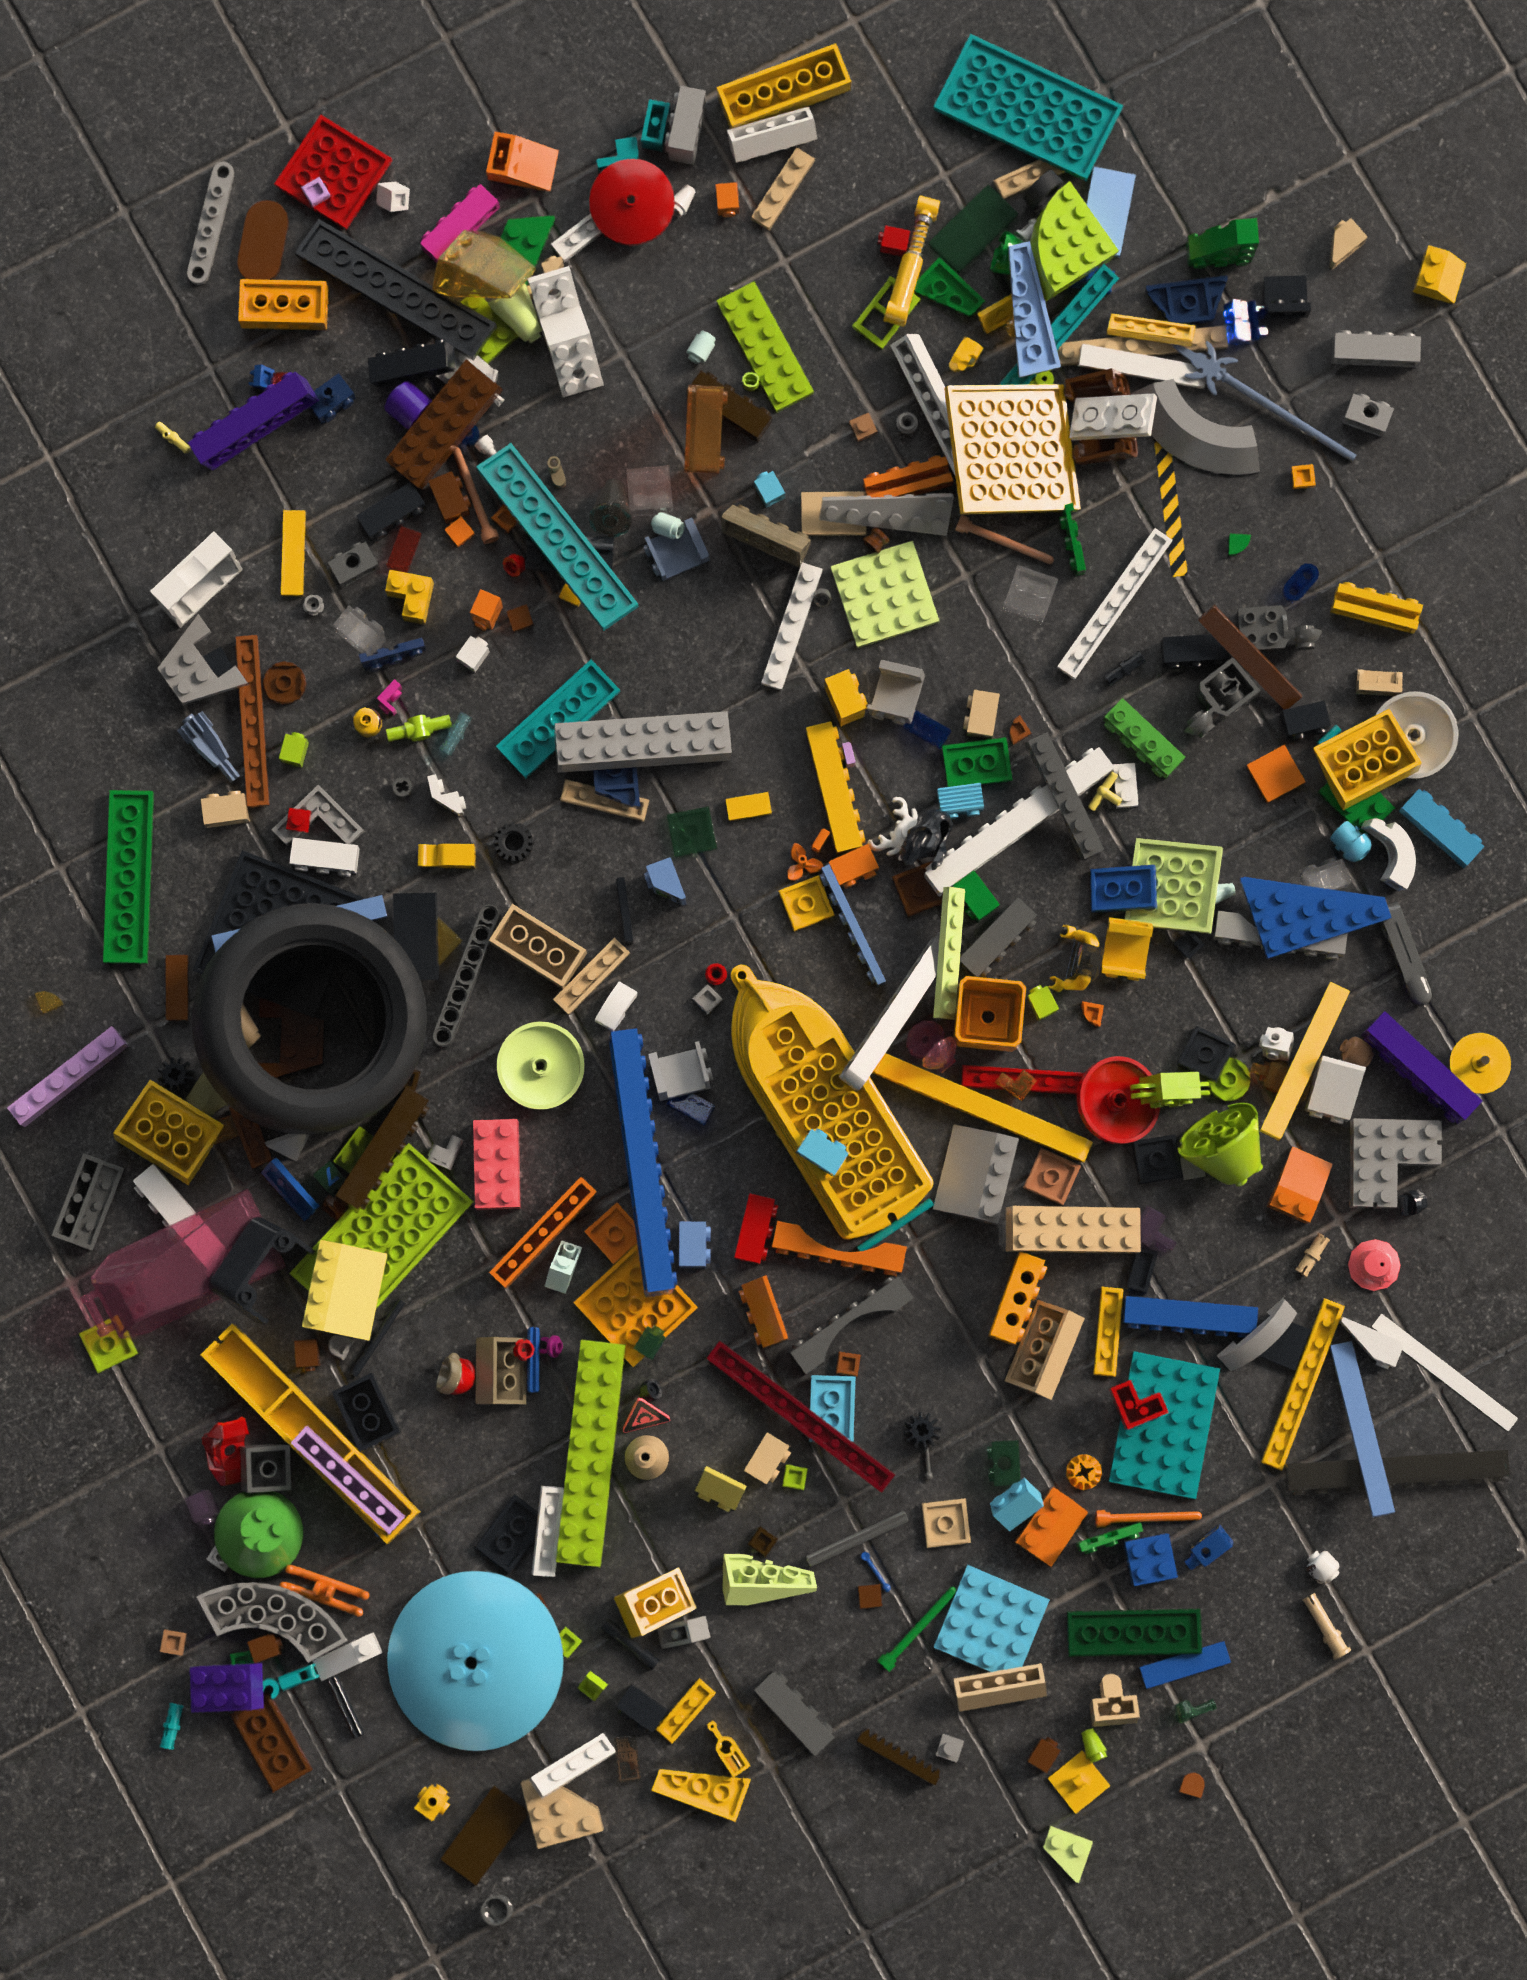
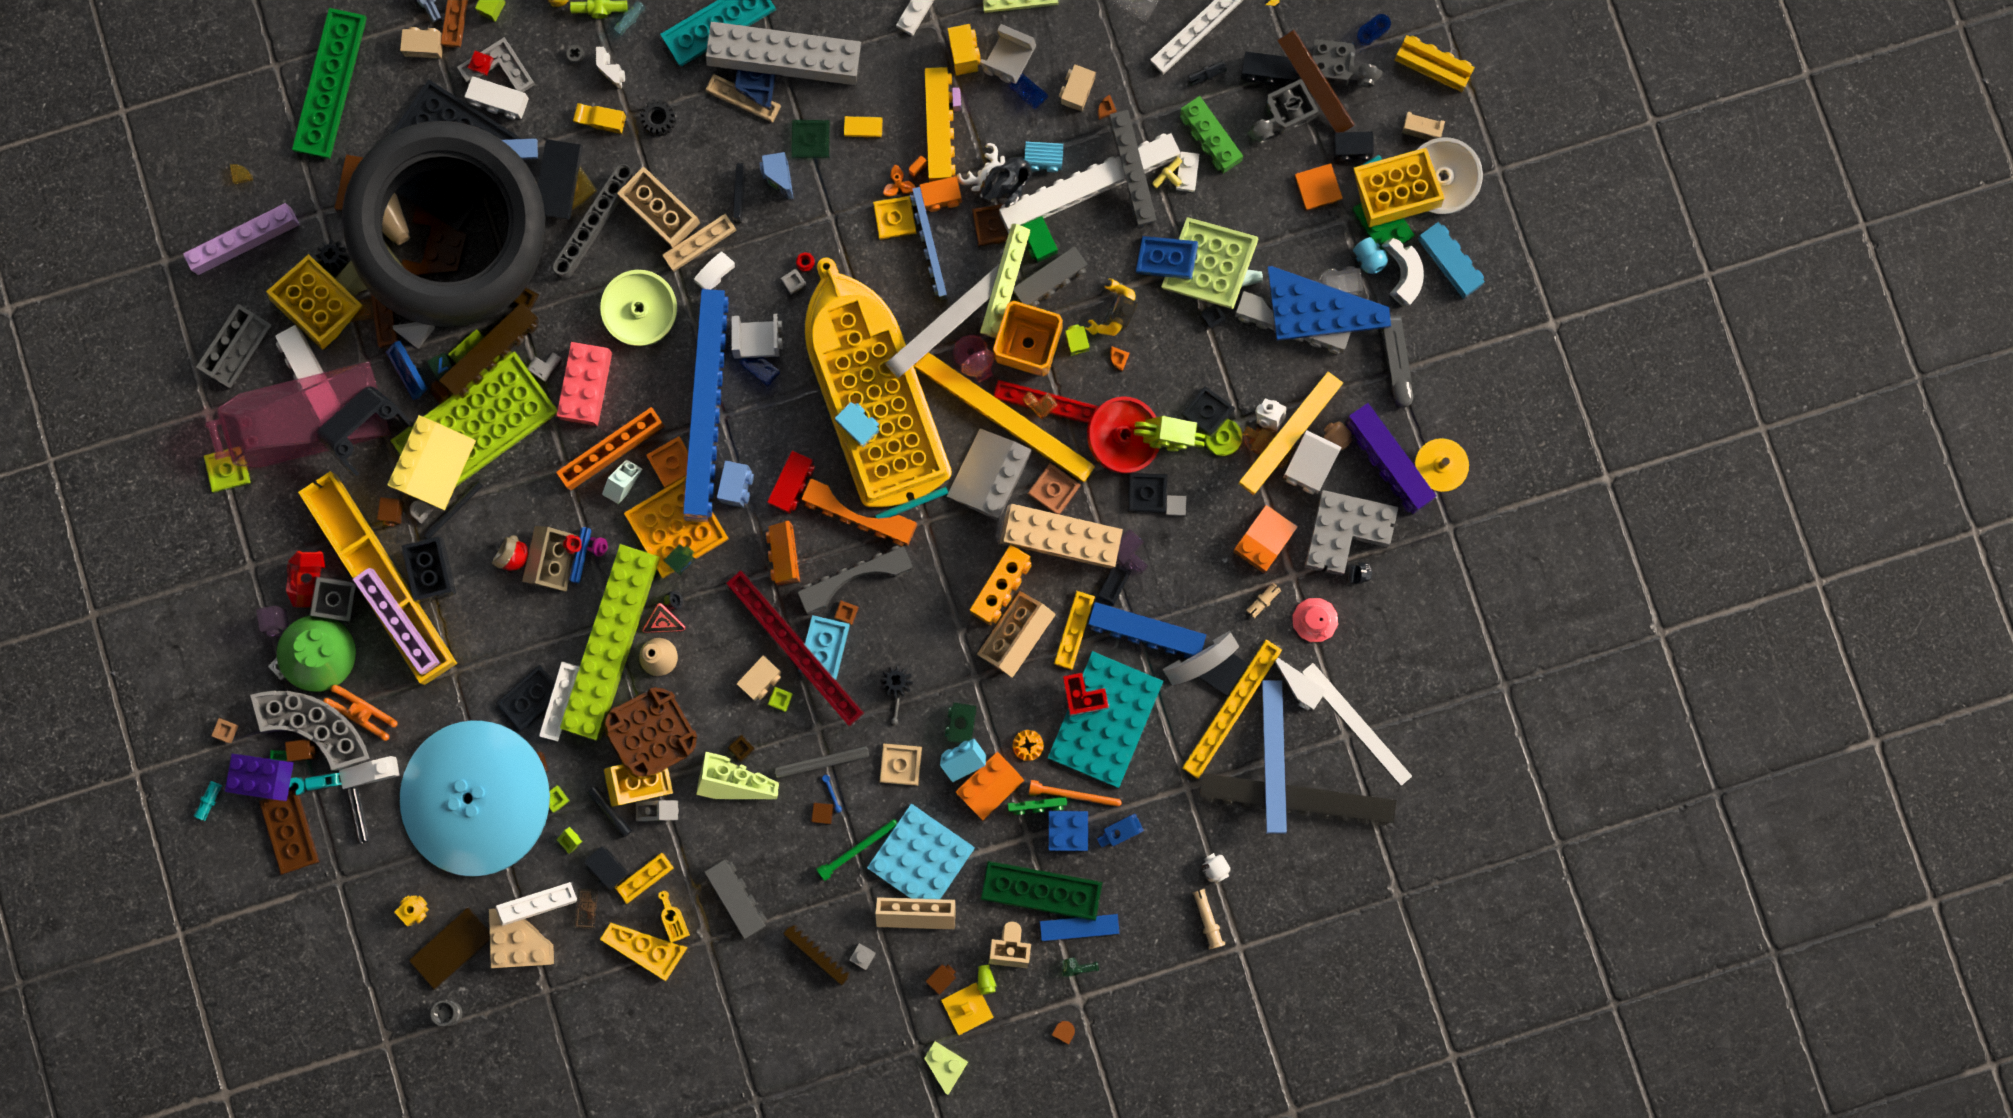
camera: 20 degrees right, 0 degrees up
(658, 1546) = (650, 733): none -> reddish brown tile
(720, 1488) = (713, 694): light yellow slope -> none
(977, 762) = (1065, 126): green plate -> none
(1126, 948) = (1158, 308): yellow panel -> none
(1225, 1144) = (1207, 490): lime cone -> none

